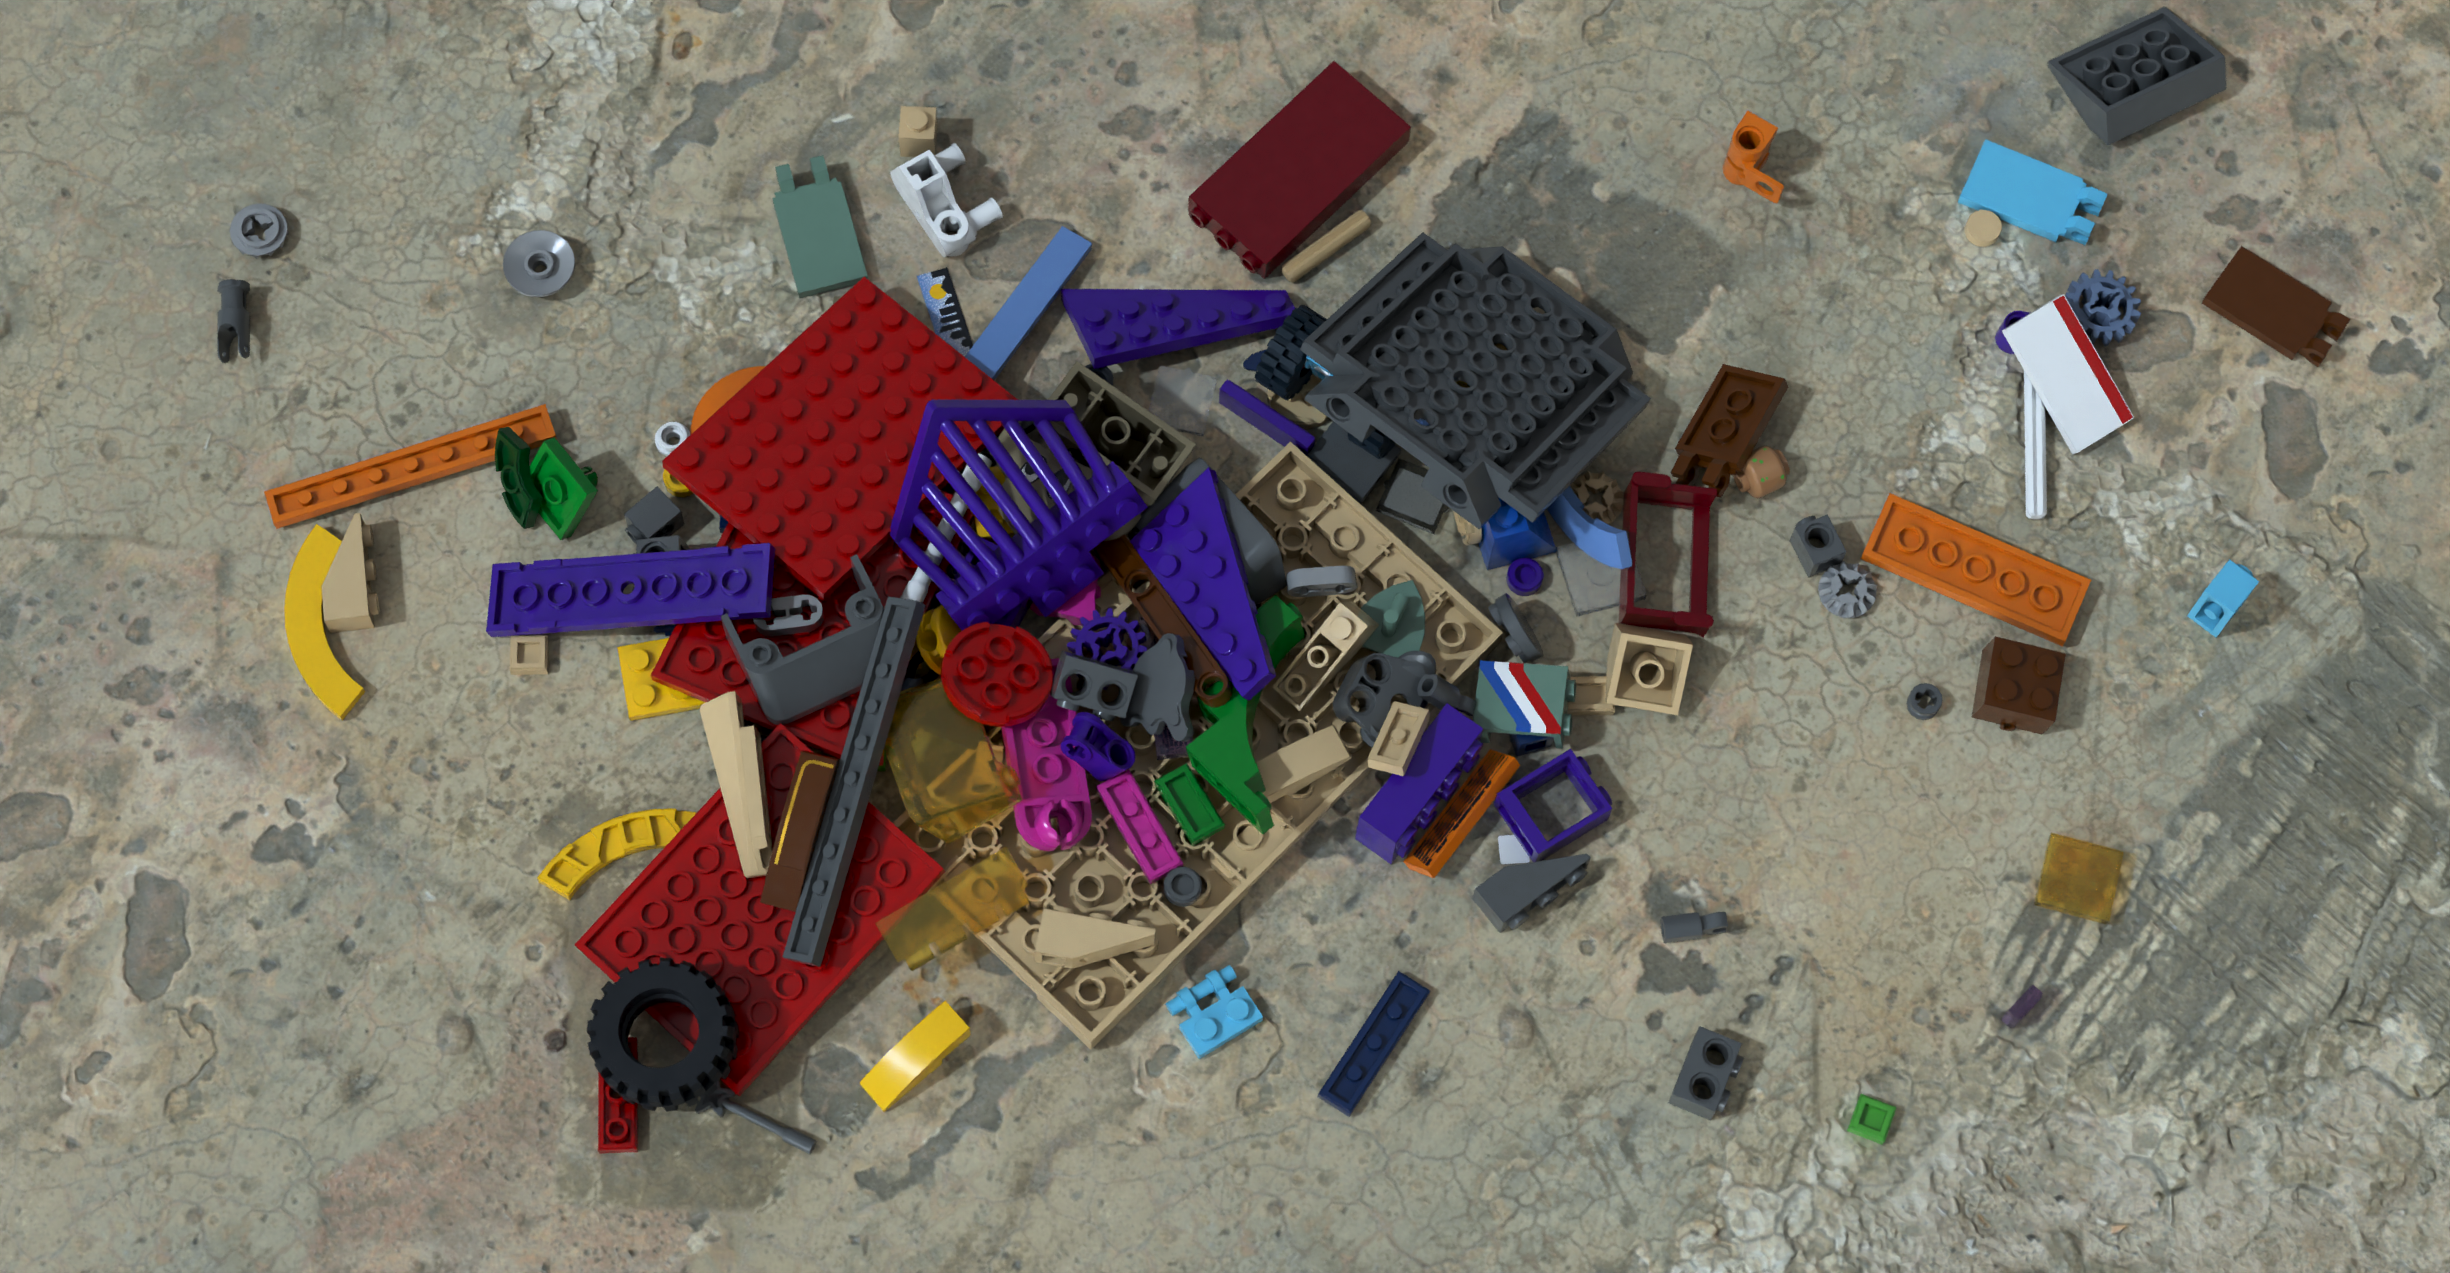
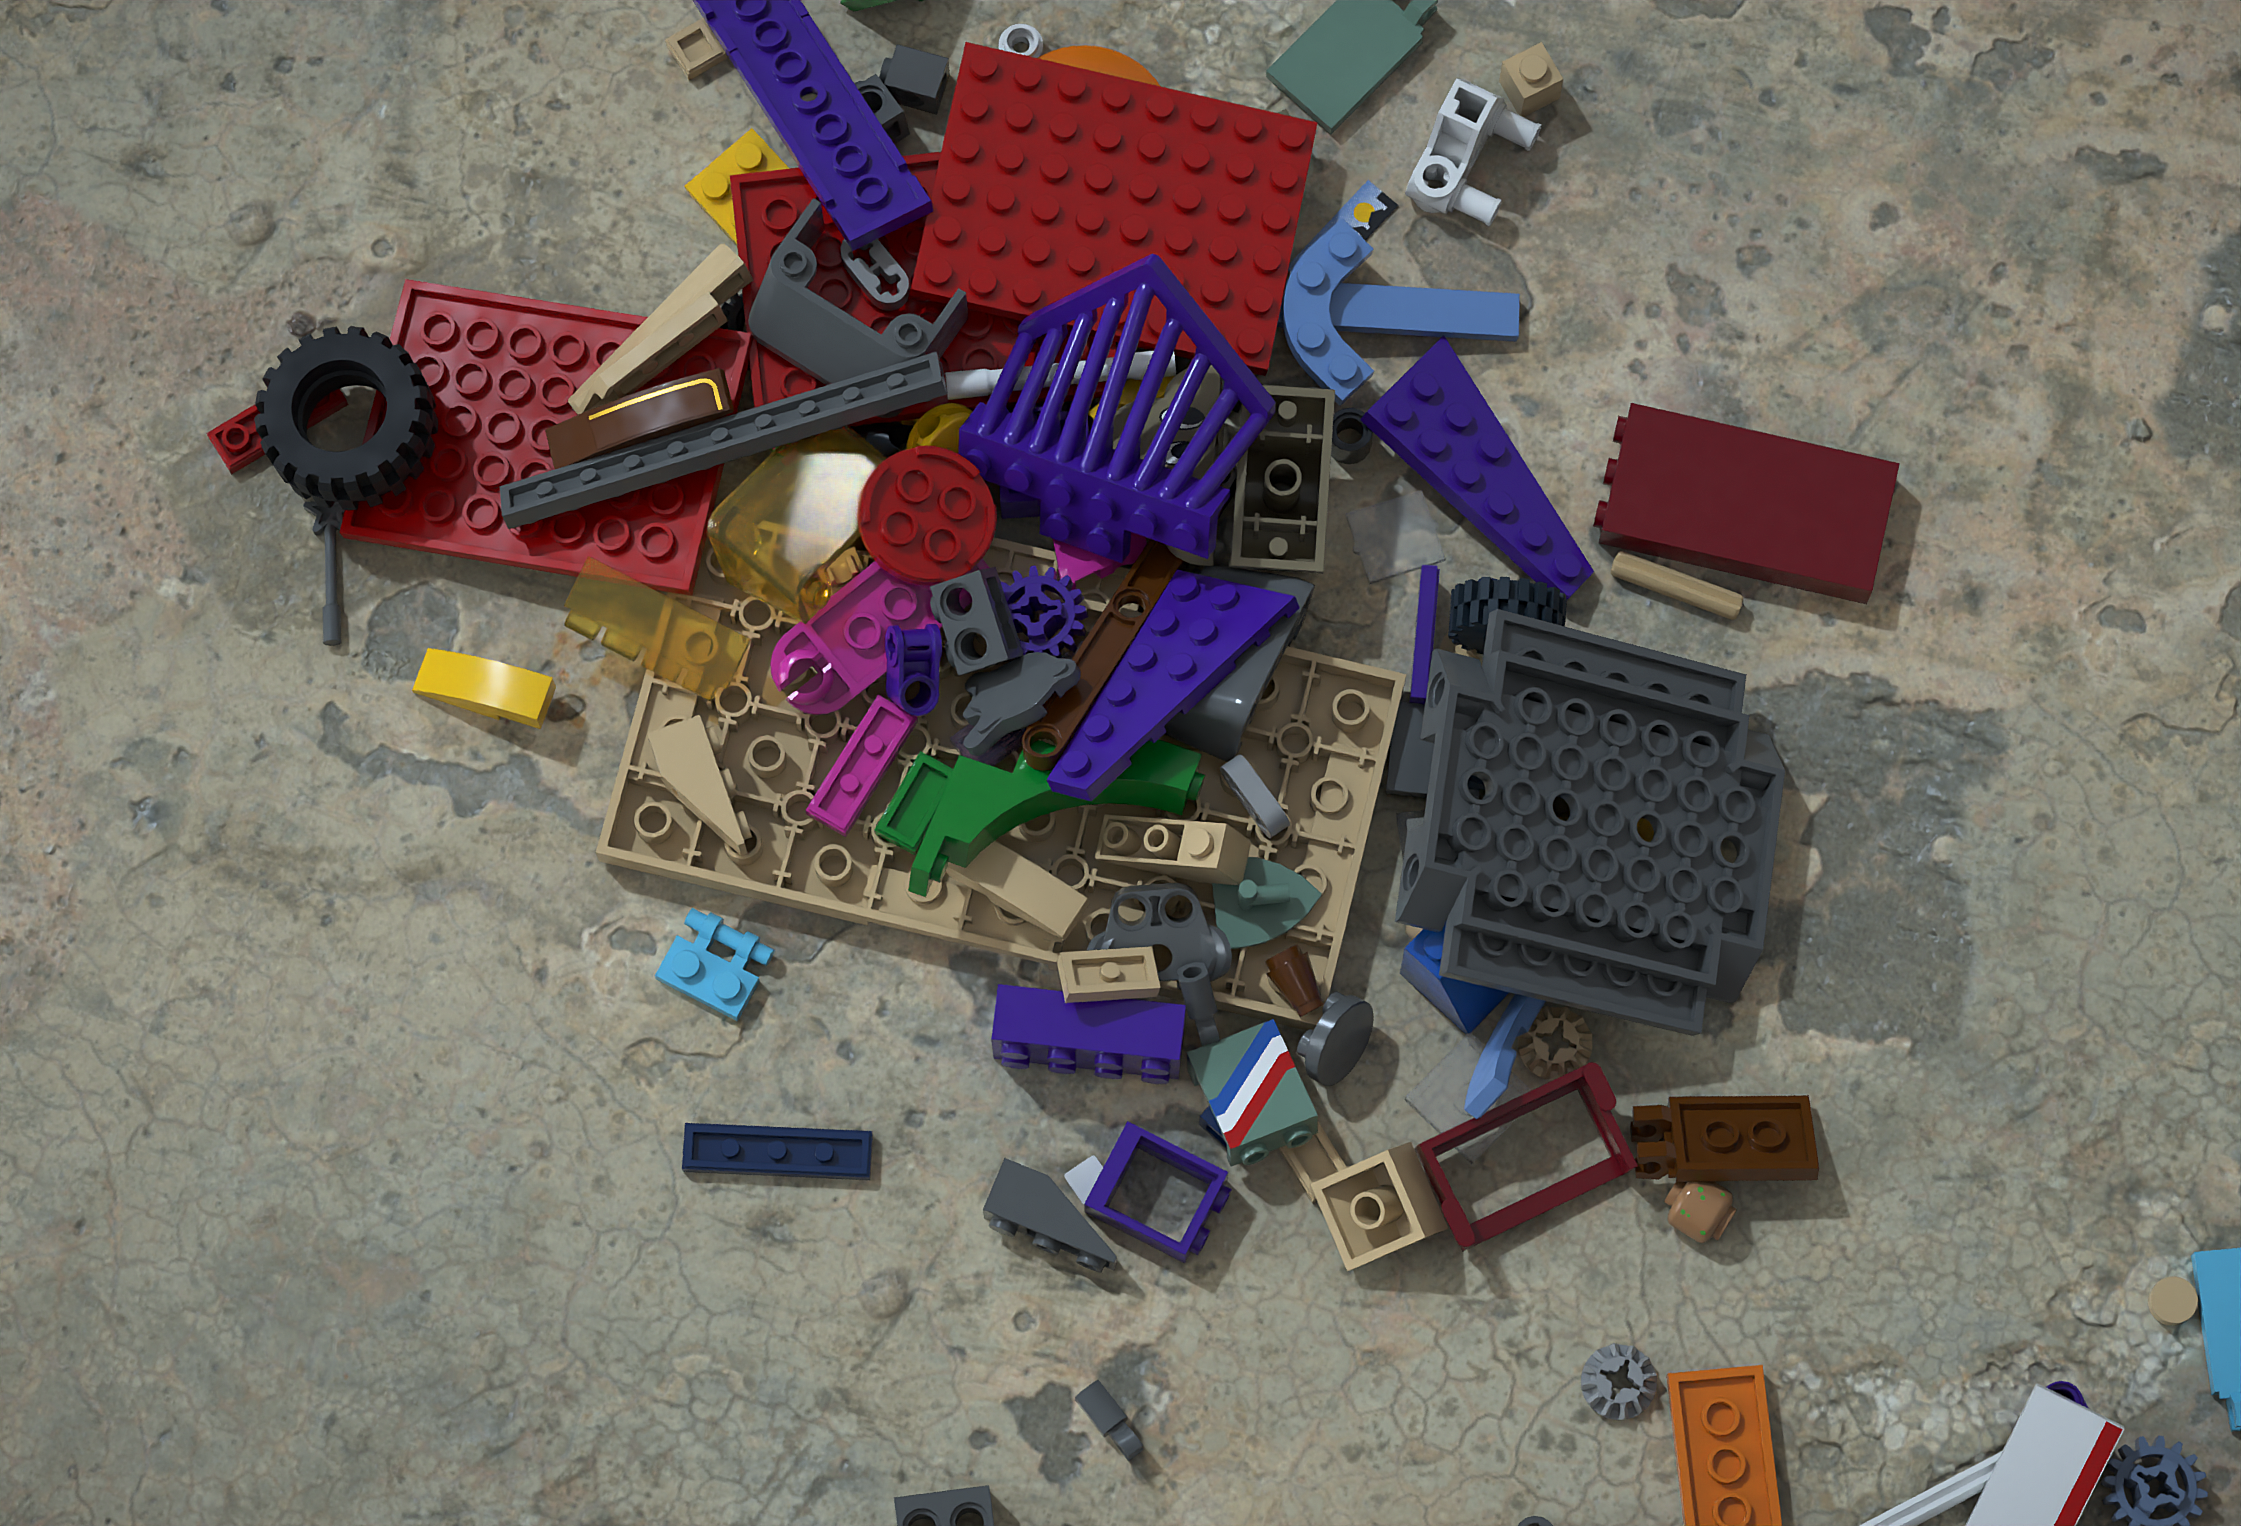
camera: 65 degrees right, 5 degrees up
(609, 843) = (539, 249): yellow tile -> none
(998, 360) = (1307, 312): none -> medium blue plate
(1182, 886) = (820, 848): dark grey tile -> none
(1461, 813) = (1090, 1099): orange tile -> none
(1465, 627) = (1295, 979): none -> reddish brown cone
(1524, 576) = (1414, 1017): dark purple tile -> none
(1749, 153) = (2102, 975): orange piece -> none
(1817, 559) = (1634, 1331): dark grey brick -> none

